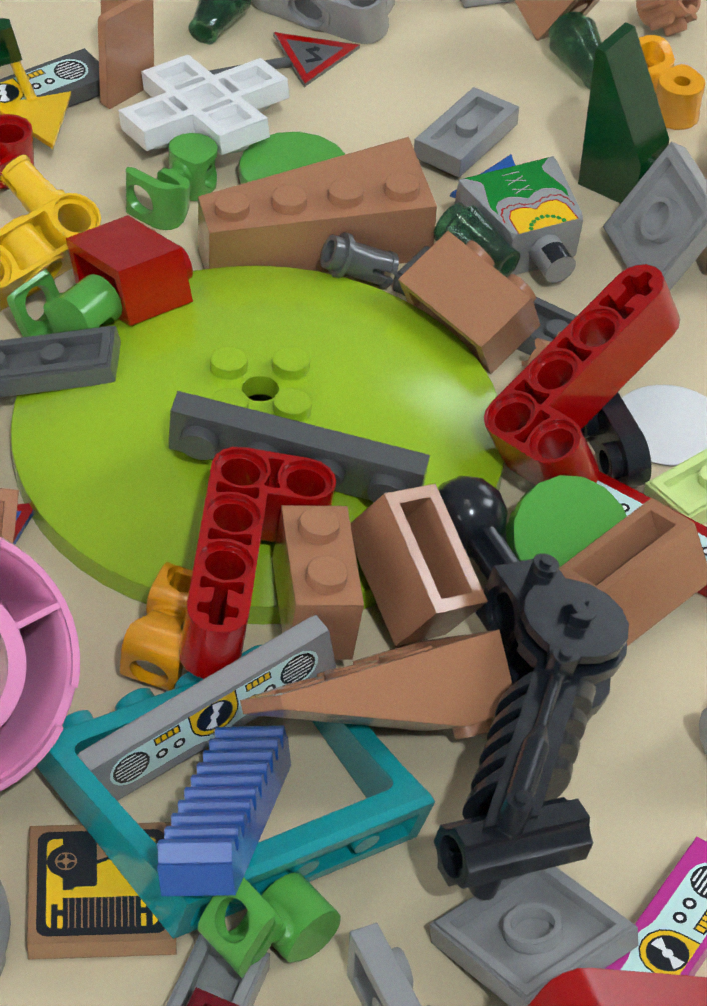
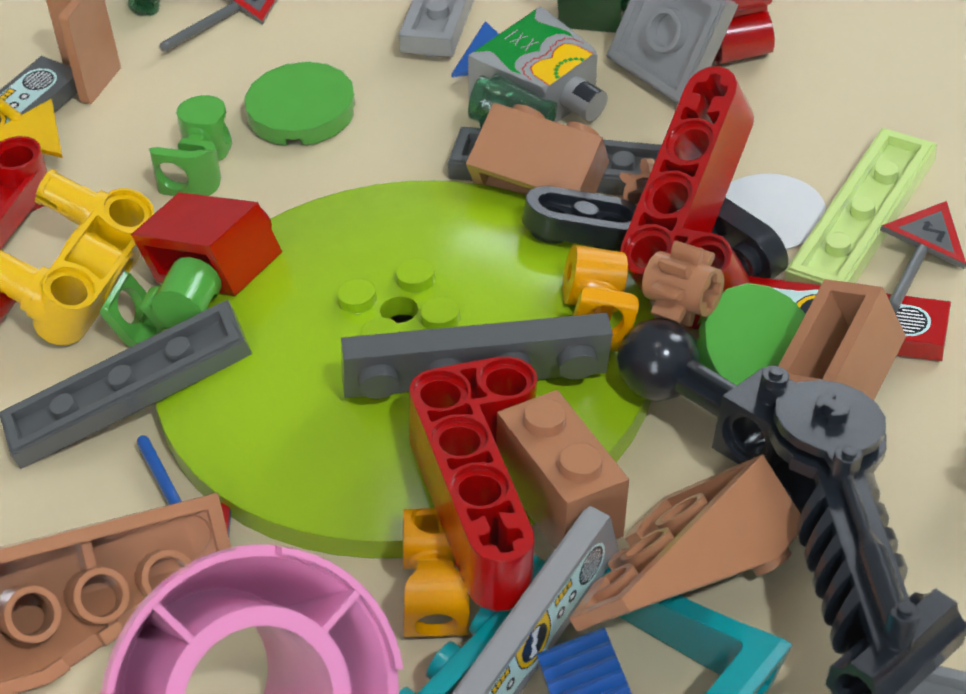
camera: 15 degrees left, 0 degrees up
(196, 101) = (173, 69): white plate -> none
(290, 215) = (356, 130): nougat wedge -> none
(346, 256) = (398, 160): dark grey pin -> none
(416, 564) = (643, 421): nougat brick -> none
(447, 434) = (596, 284): none -> light orange leg
(468, 361) = (577, 217): none -> black plate
(515, 454) = (683, 283): none -> nougat gear

